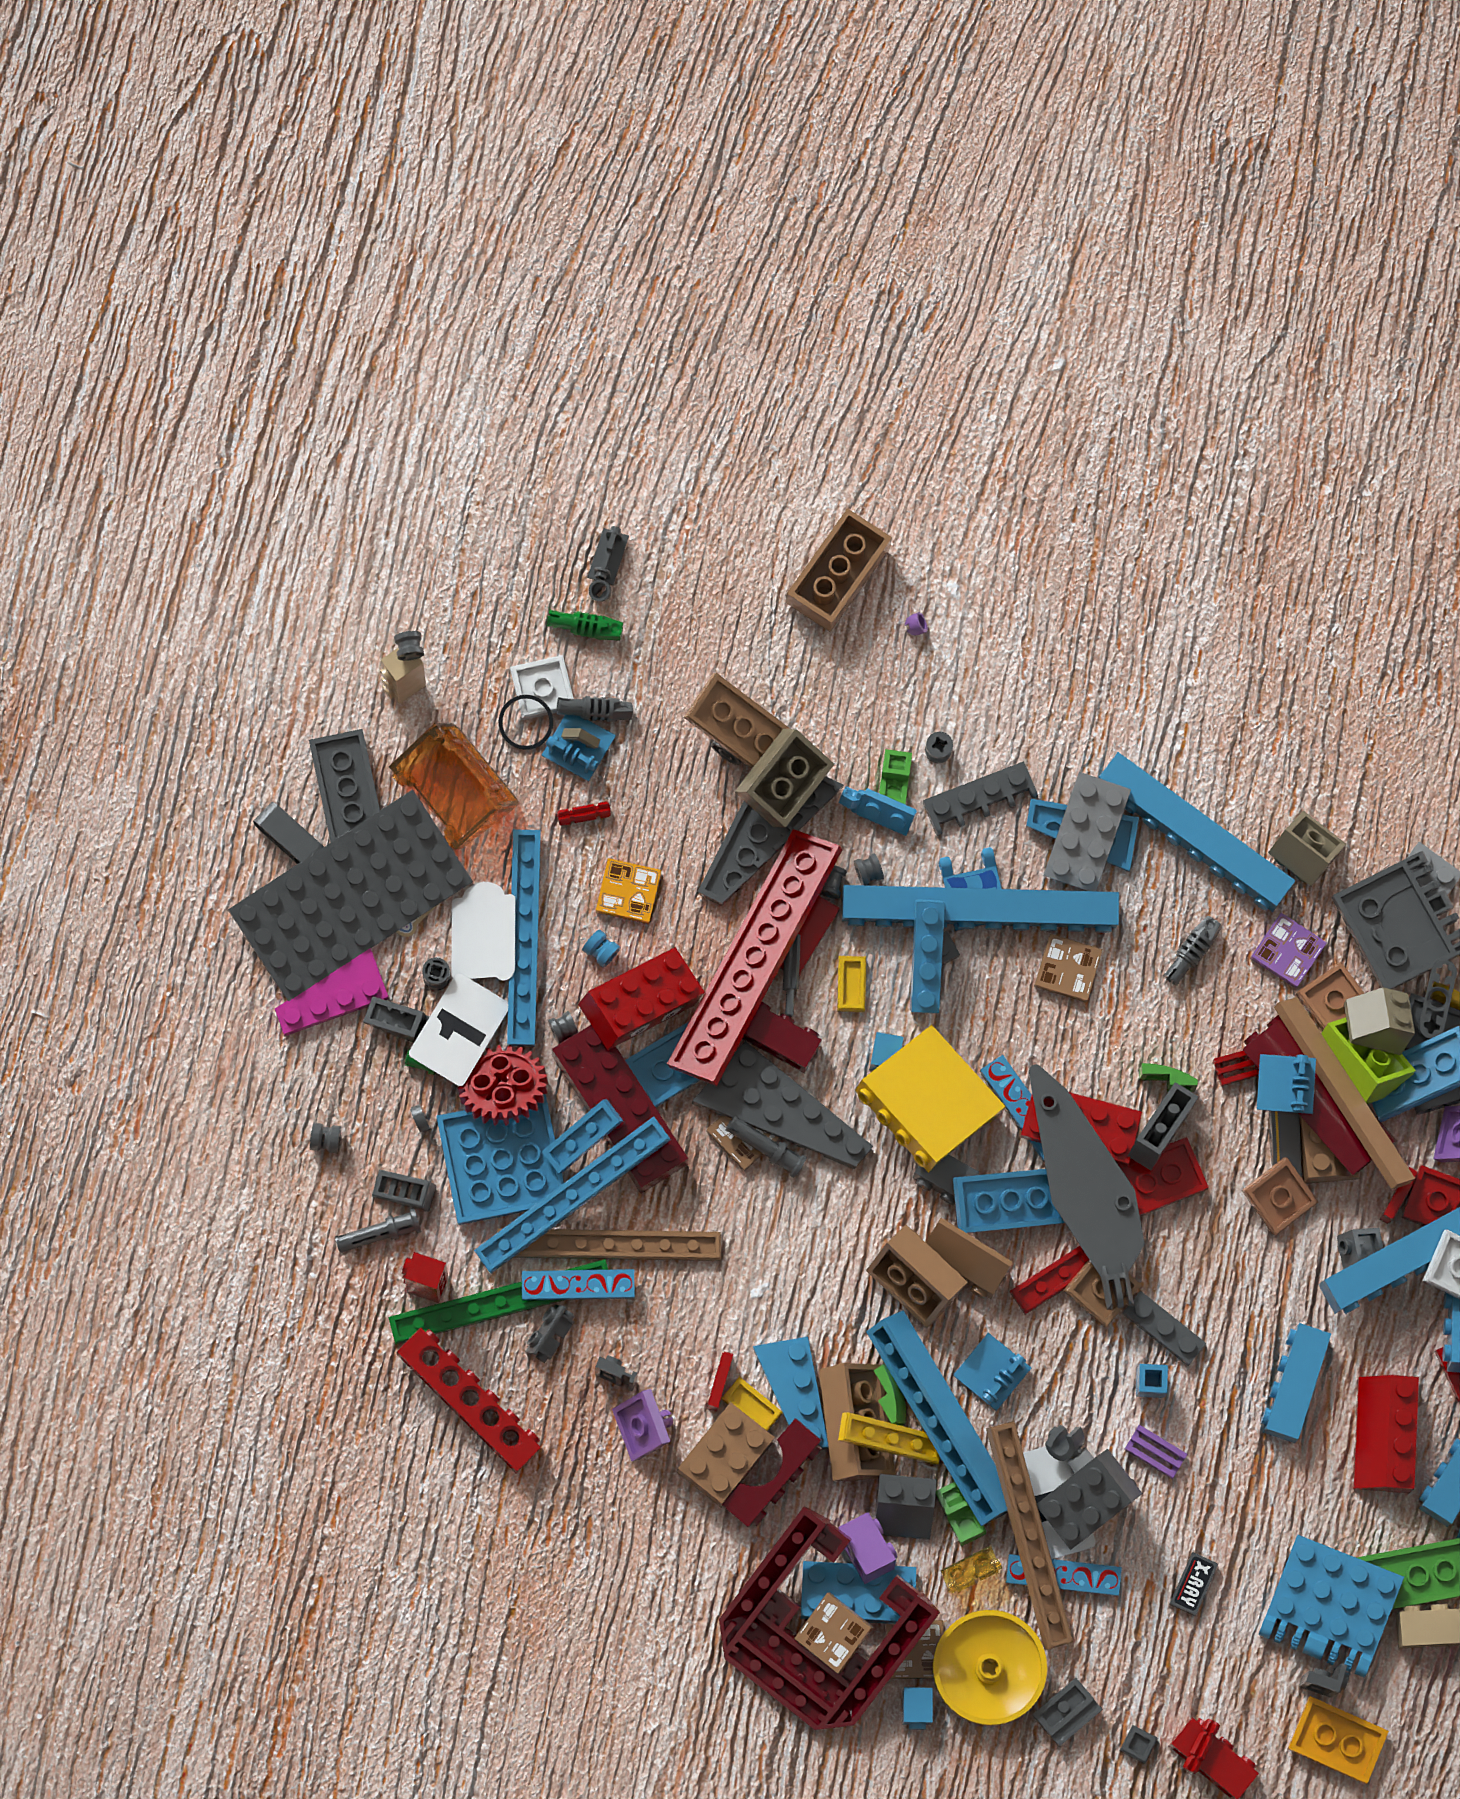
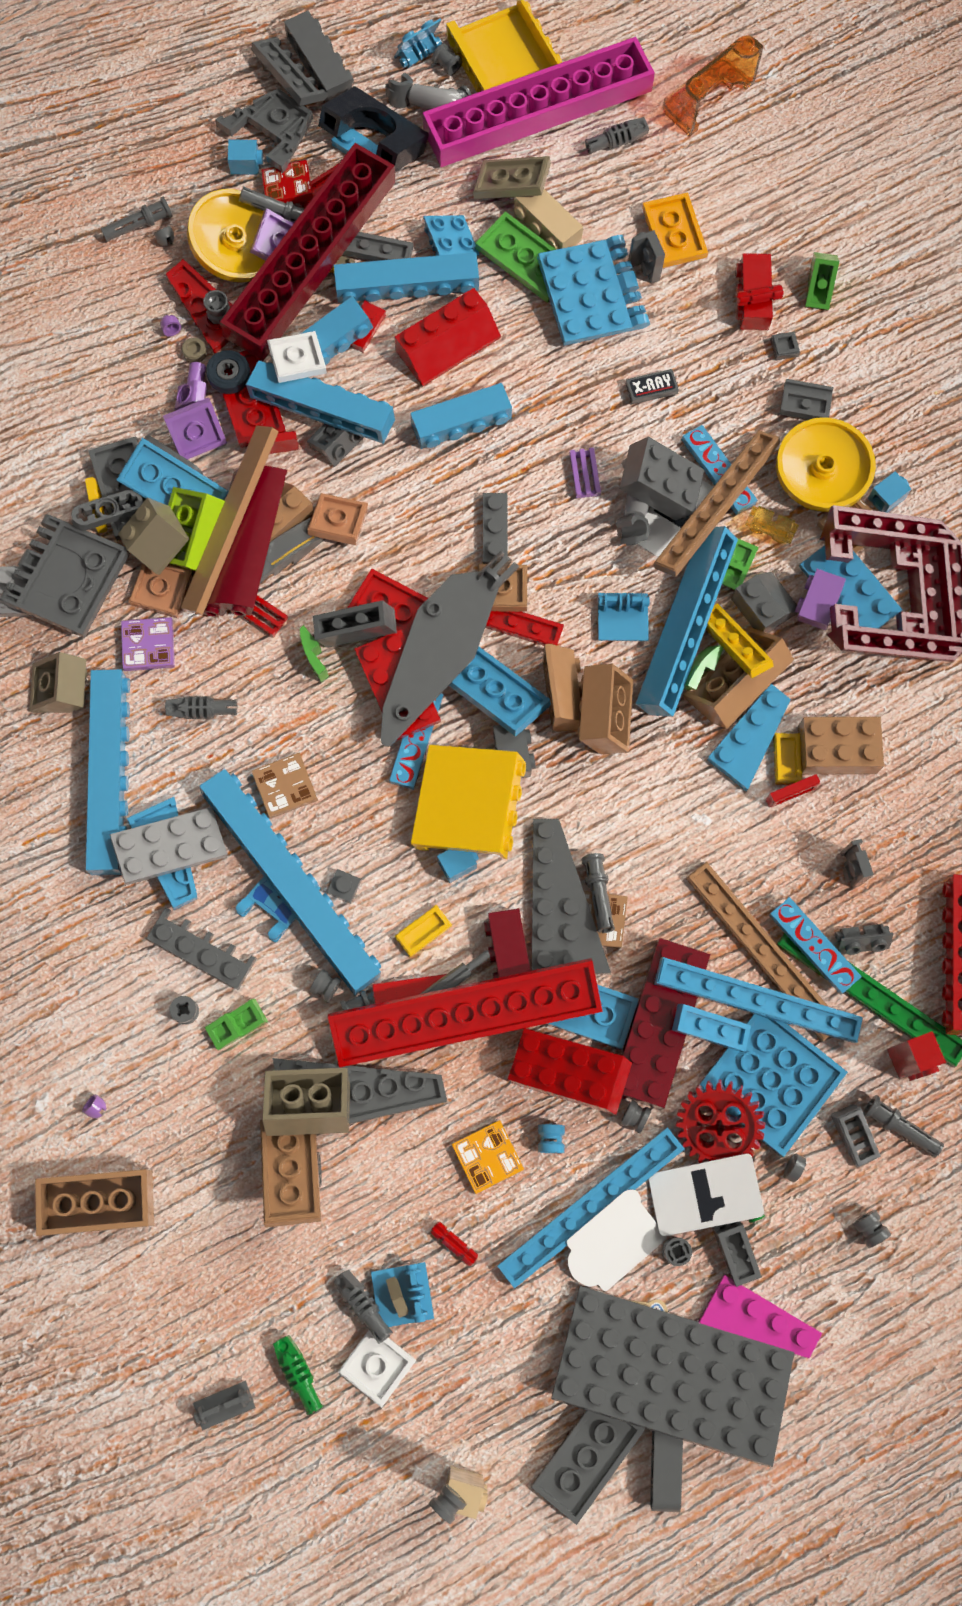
camera: 125 degrees left, 0 degrees up
(454, 783) = (513, 1368): clear orange windscreen -> none
(500, 722) = (442, 1349): black piece -> none
(596, 586) = (259, 1393): dark grey hinge -> none
(642, 1424) = (873, 816): medium lavender tile -> none
(797, 1446) = (793, 698): dark red arch -> none
(834, 1632) = (898, 574): medium nougat tile -> none
(879, 809) = (270, 1016): dark azure hinge -> none
(927, 956) = (361, 885): dark azure brick -> none
(1151, 1380) = (542, 504): dark azure brick -> none
(1286, 1083) = (256, 556): dark azure hinge -> none

